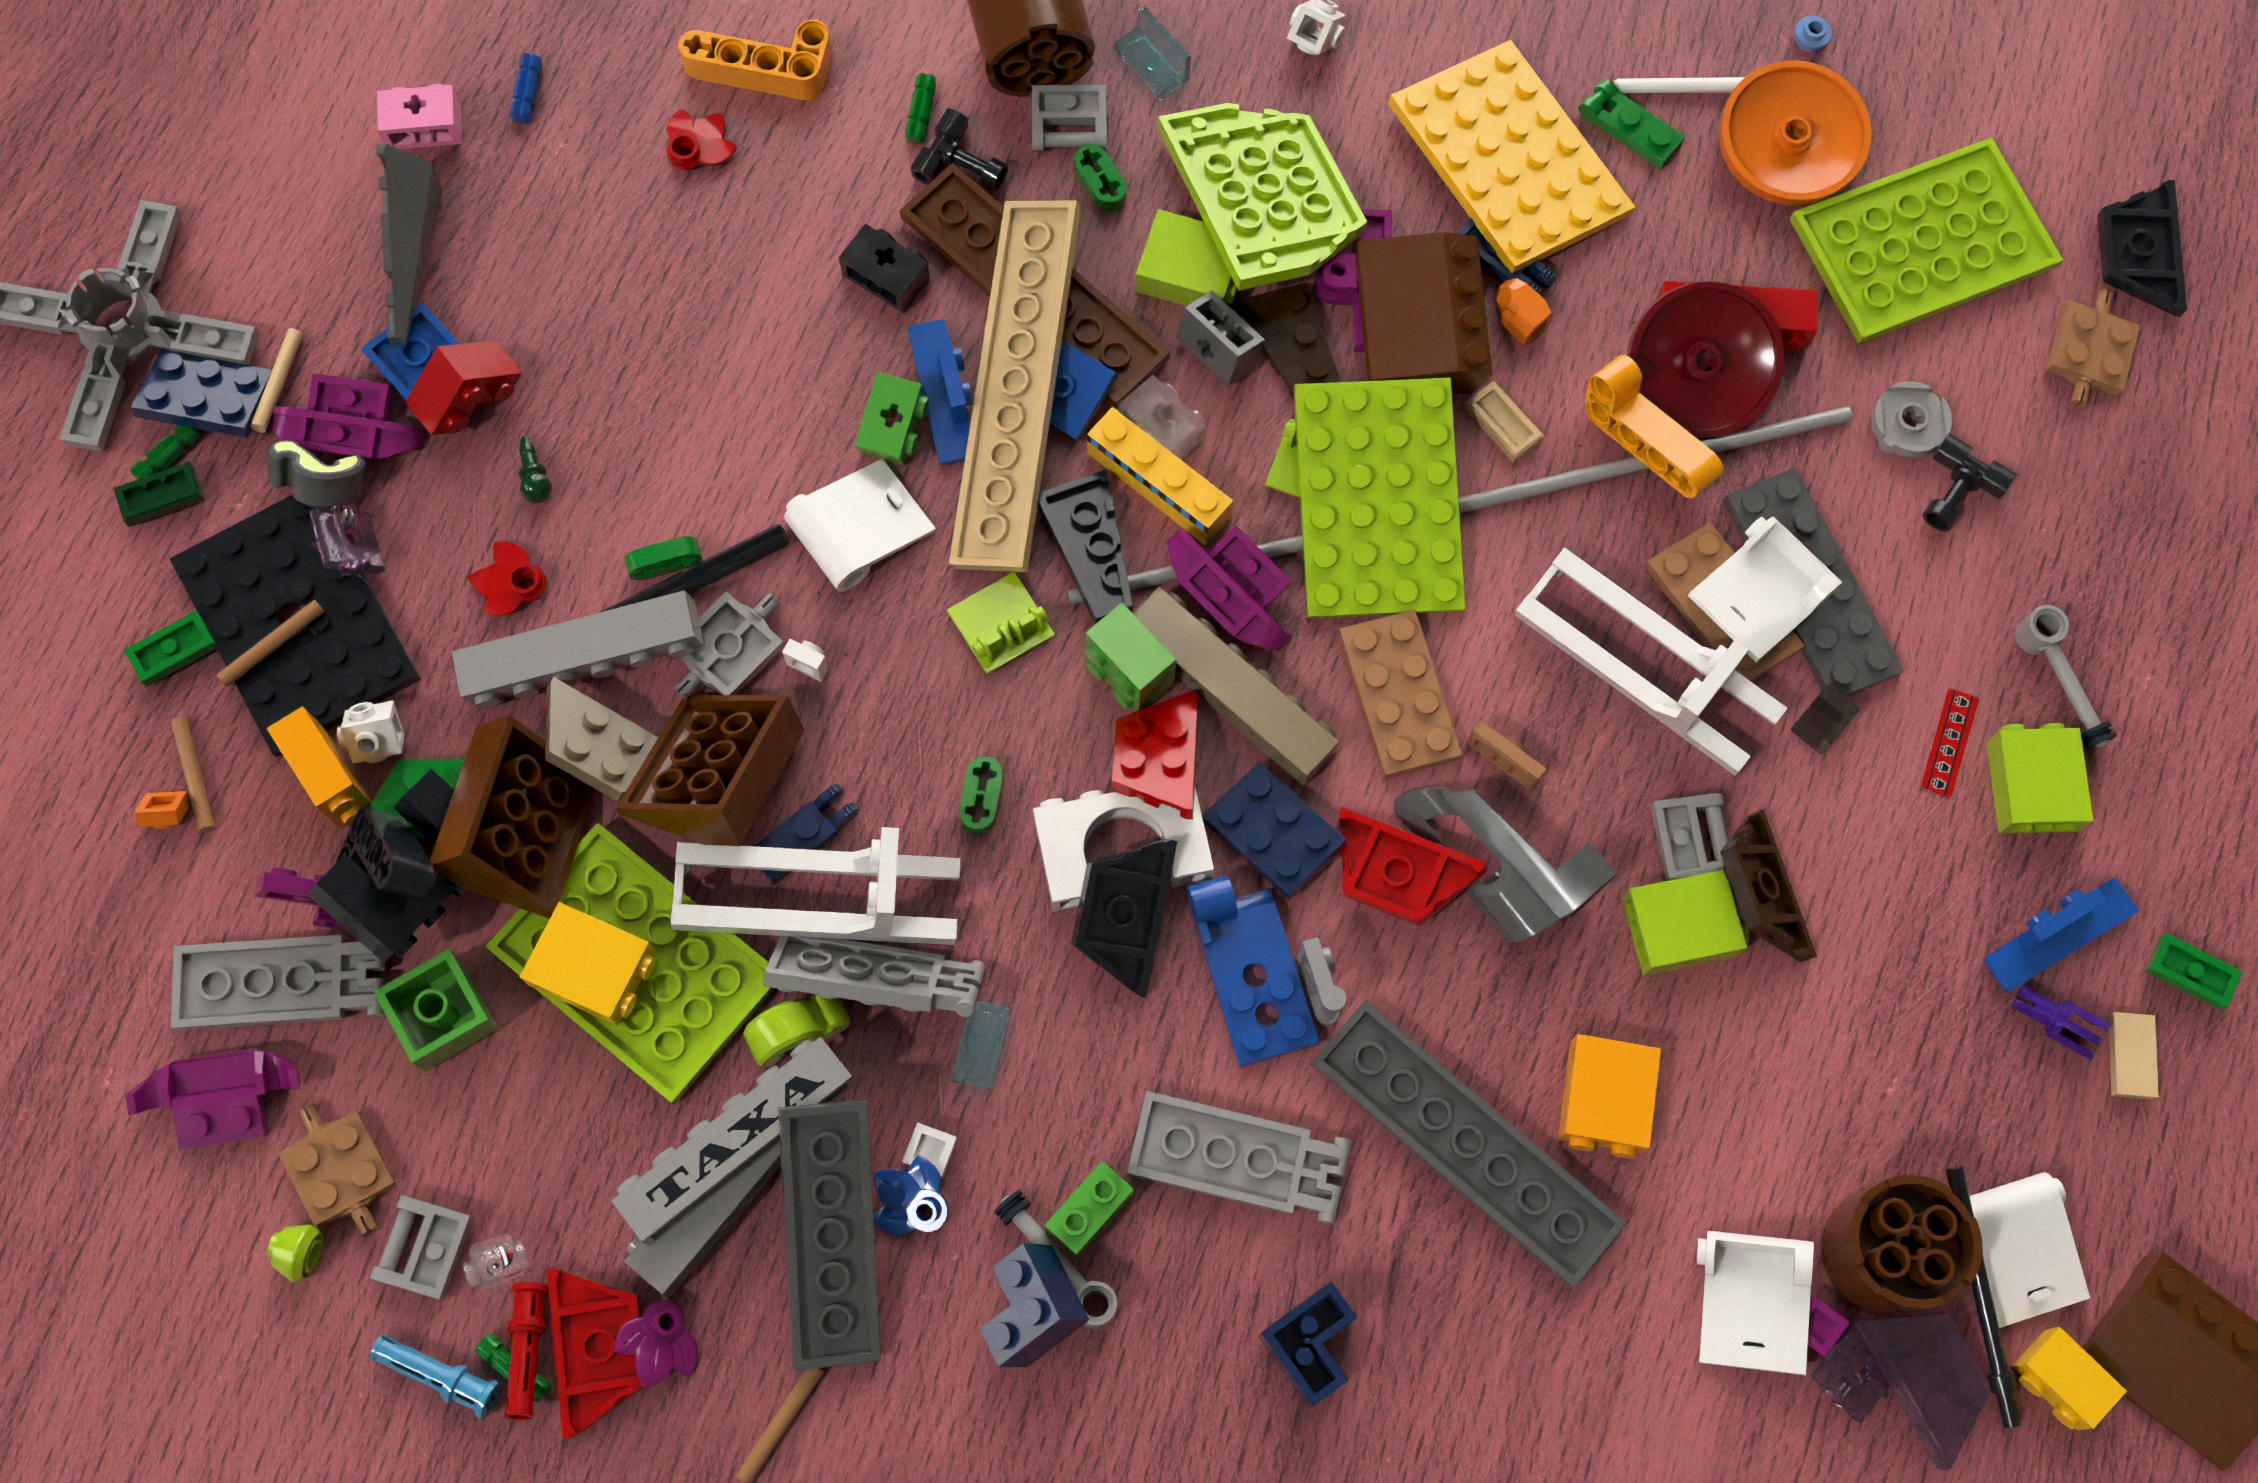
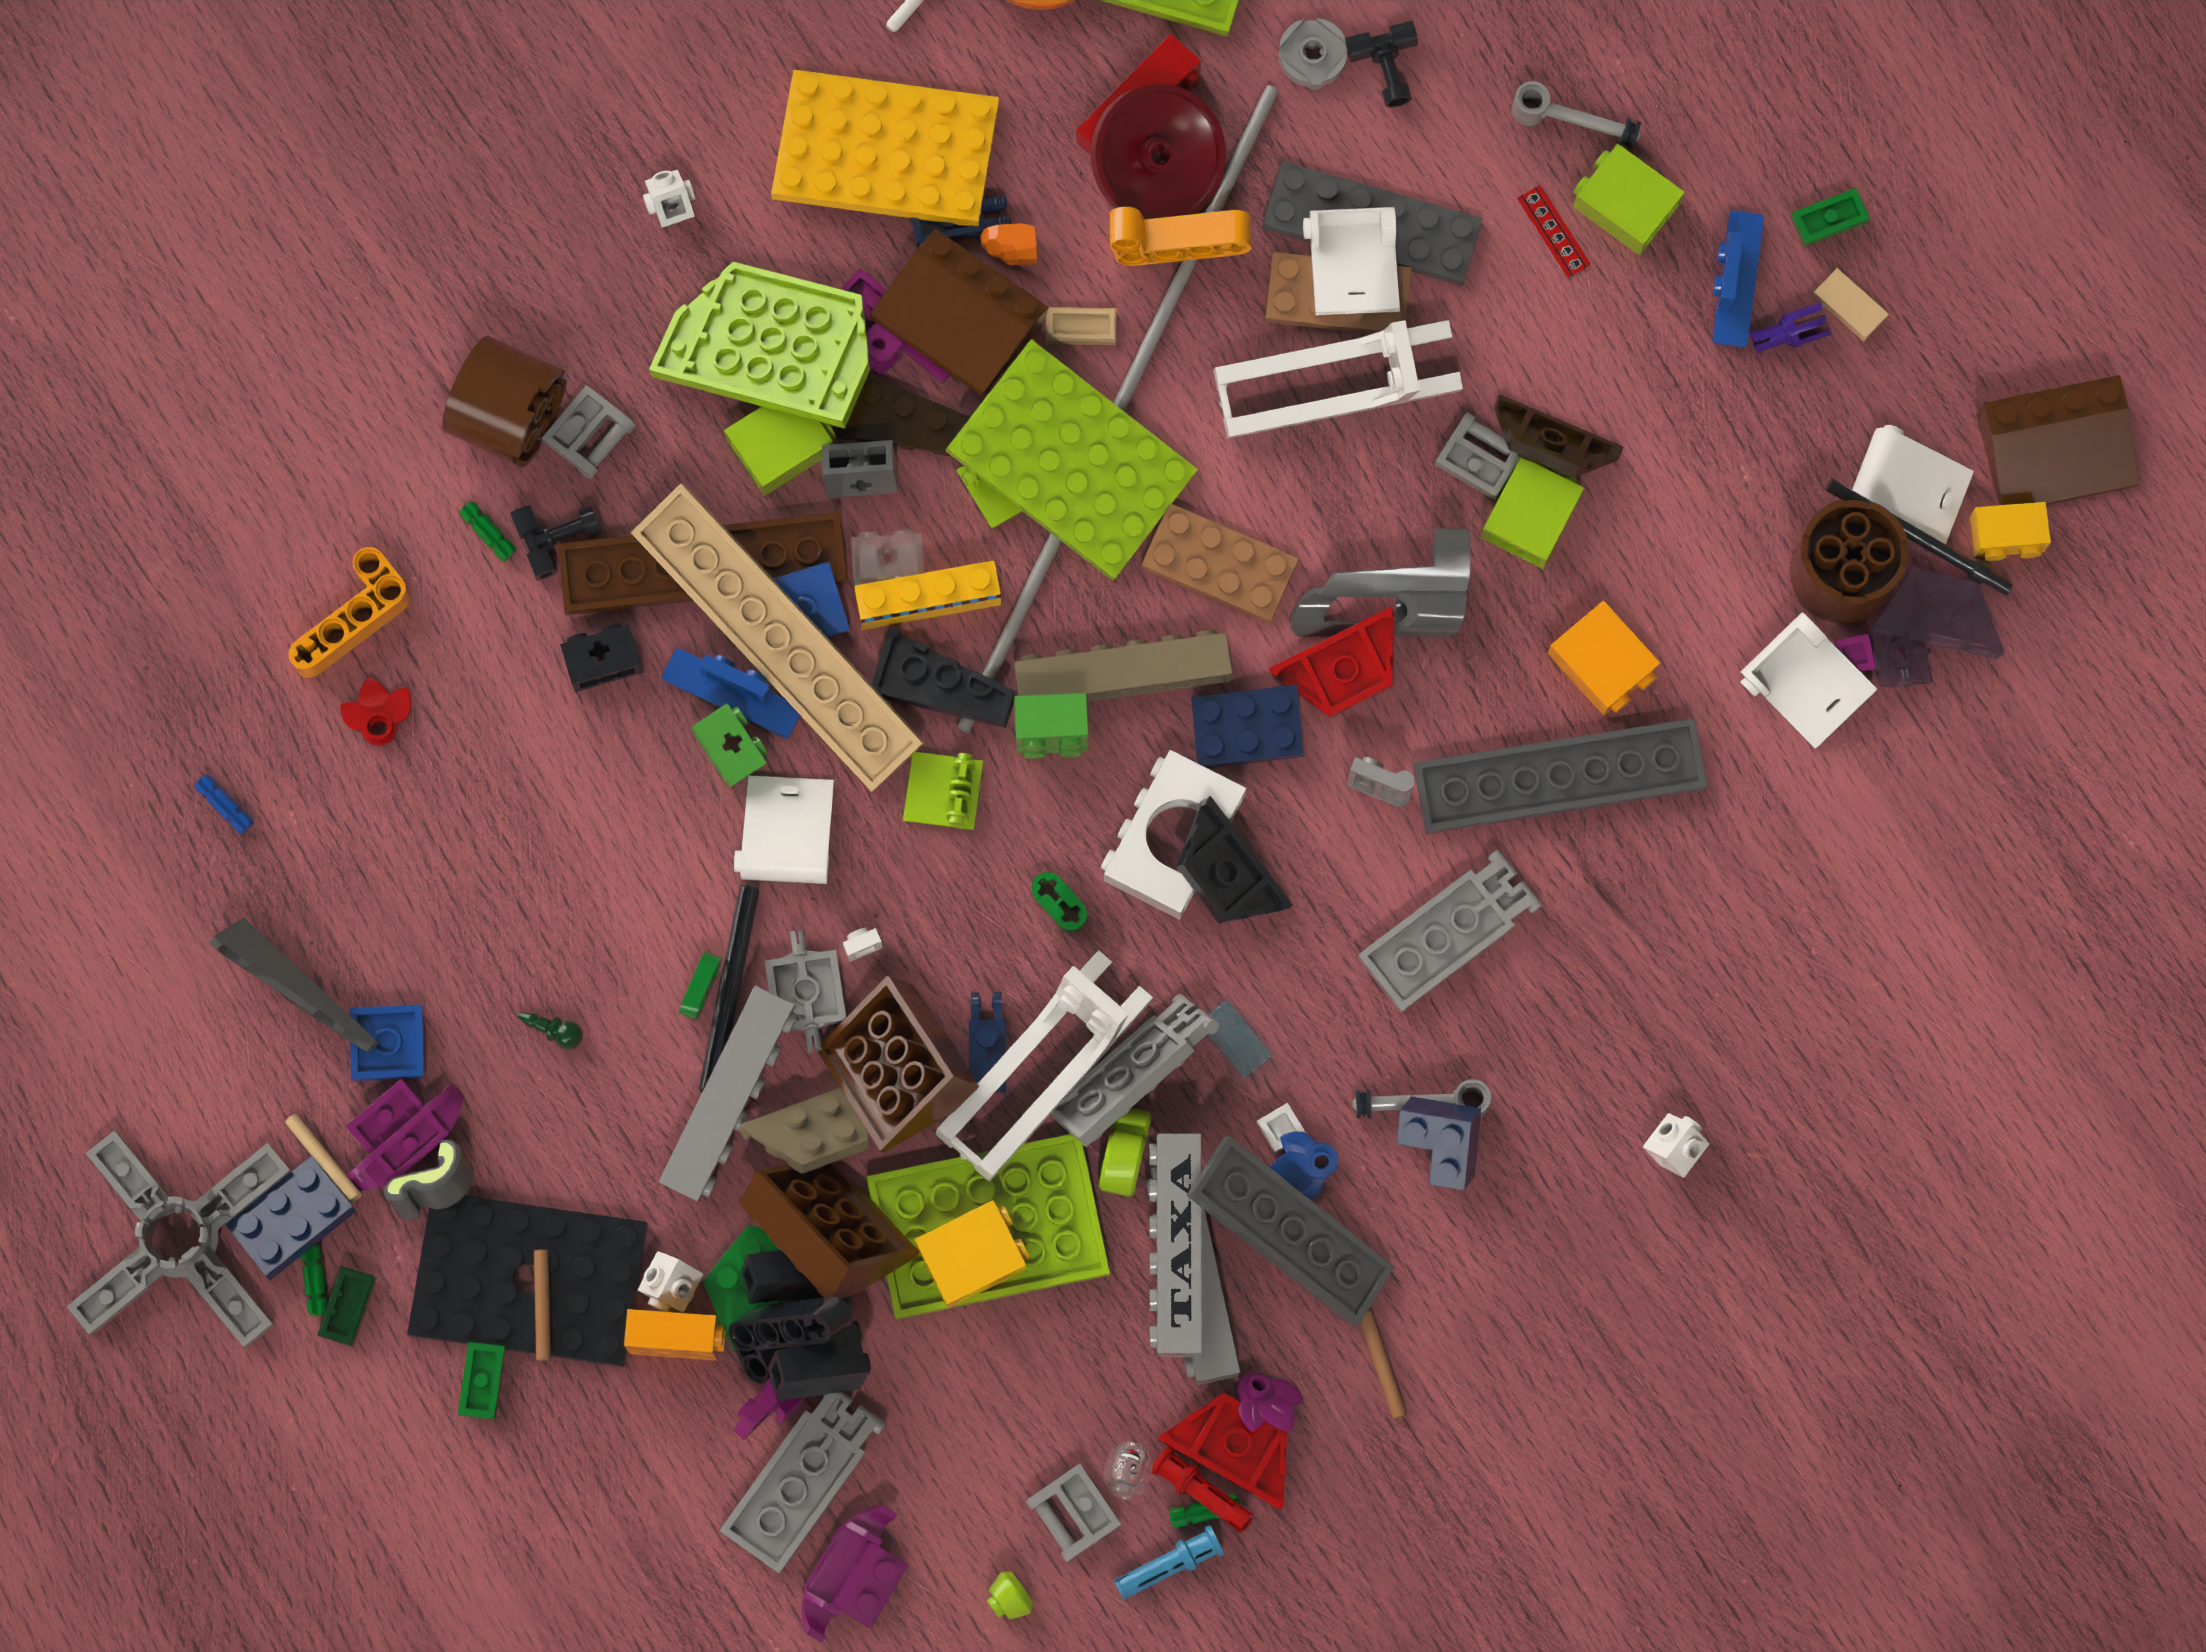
camera: 50 degrees left, 5 degrees up
(162, 809) = (605, 1470): orange plate -> none
(193, 774) = (591, 1433): medium nougat bar -> none
(337, 1169) = (971, 1532): medium nougat plate -> none
(346, 540) = (504, 1196): clear purple piece -> none
(419, 116) = (185, 917): bright pink brick -> none
(436, 1010) = (917, 1381): bright green brick -> none
(458, 381) = (447, 1025): red brick -> none
(504, 580) = (618, 1109): red plate -> none
(1089, 1210) = (1406, 1054): bright green brick -> none
(1094, 181) = (653, 456): green beam -> none
(1155, 55) = (589, 330): clear light blue panel -> none
(1158, 753) = (1134, 759): red wing -> none
(1232, 584) = (1050, 610): magenta plate -> none
(1244, 935) = (1298, 814): blue hinge -> none
(1298, 1344) = (1603, 990): dark blue brick -> none
(1506, 754) = (1323, 529): medium nougat plate -> none
(1631, 124) = (931, 43): green plate -> none
(1825, 719) = (1472, 299): clear smoke panel -> none

